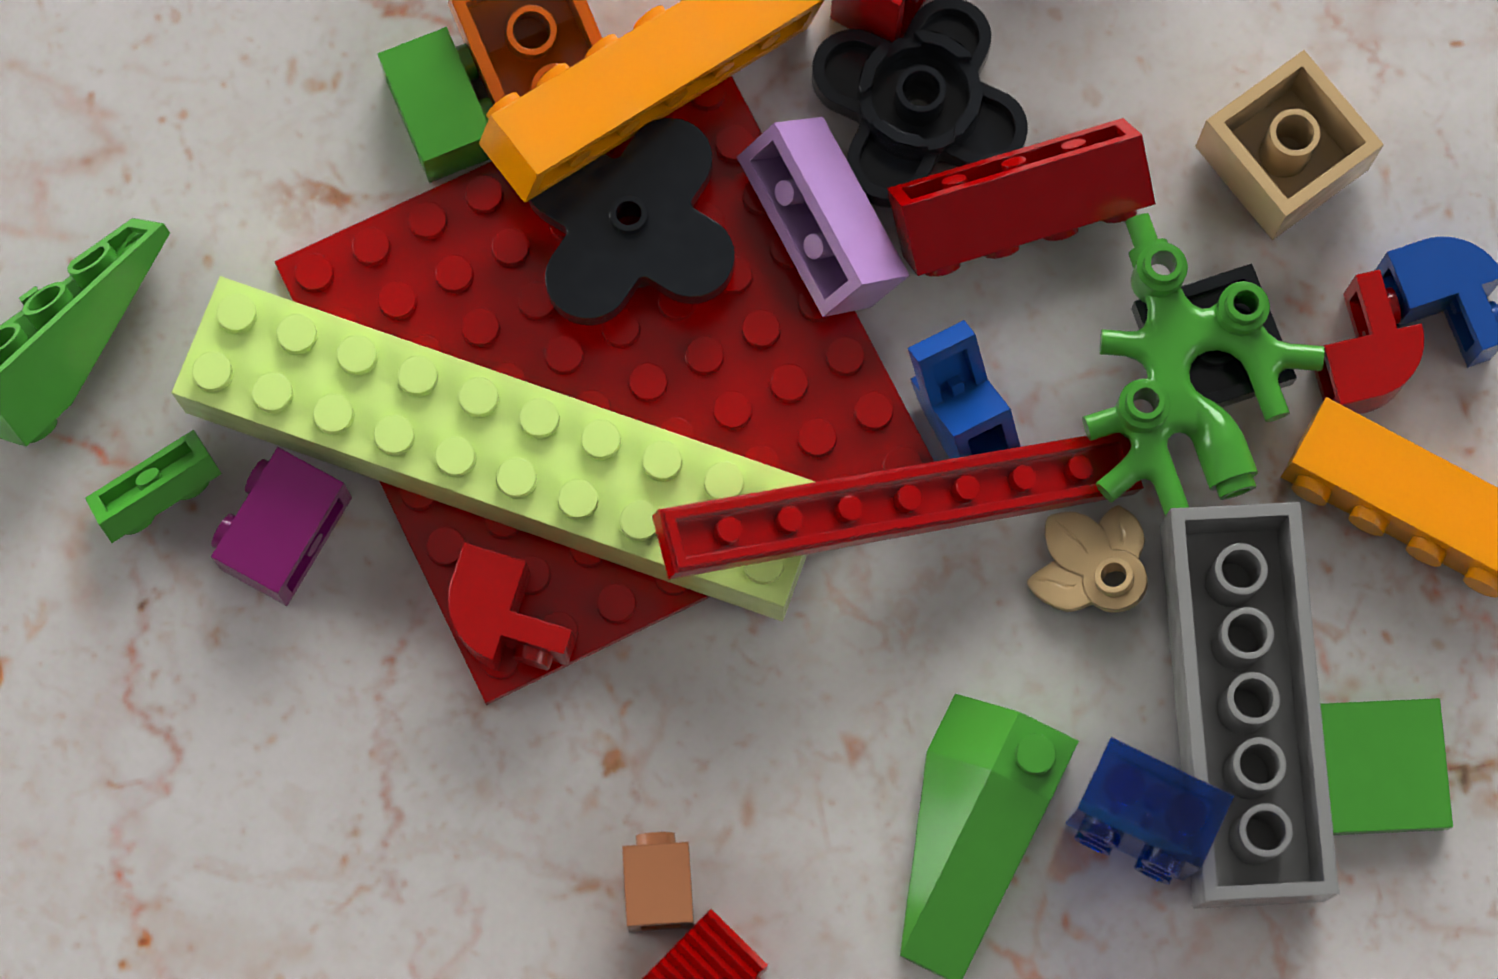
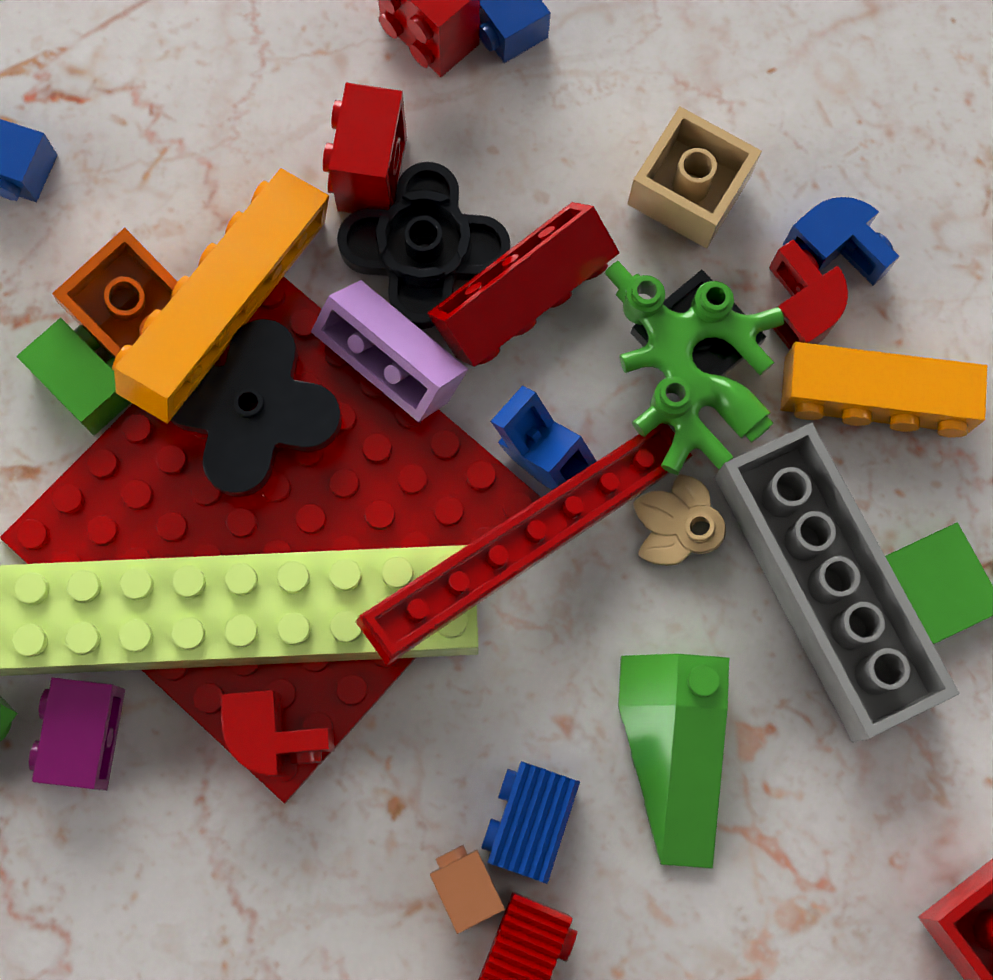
camera: 25 degrees left, 0 degrees up
(765, 839) = (531, 822): none -> blue brick
(1149, 813) = (804, 688): clear blue bracket -> none

